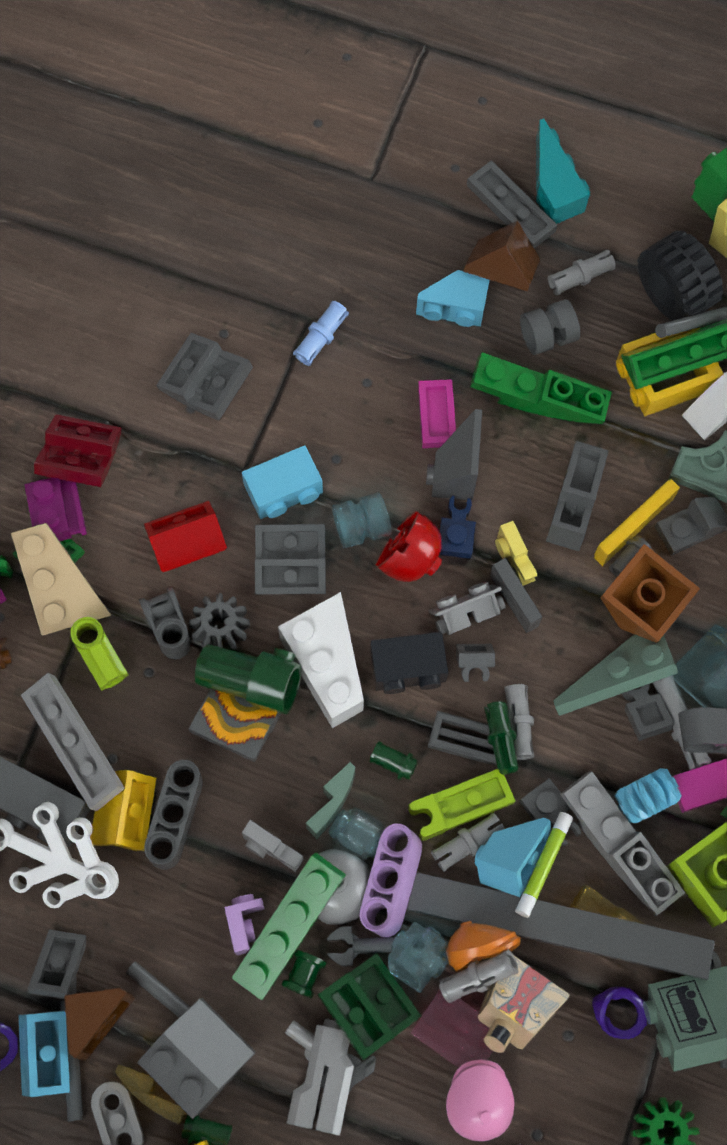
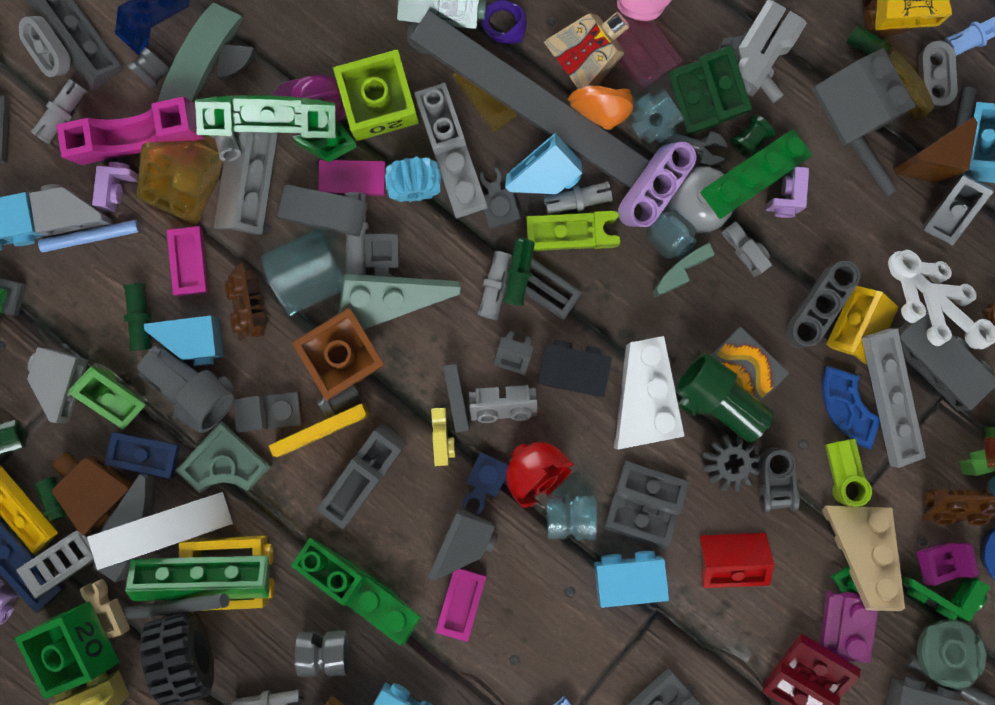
camera: 155 degrees left, 15 degrees up
(115, 720) = (845, 406): none -> blue tile
(393, 760) = (617, 288): dark green pin -> none
(478, 976) = (615, 76): light grey pin -> none
(544, 865) = (524, 152): lime bar -> none

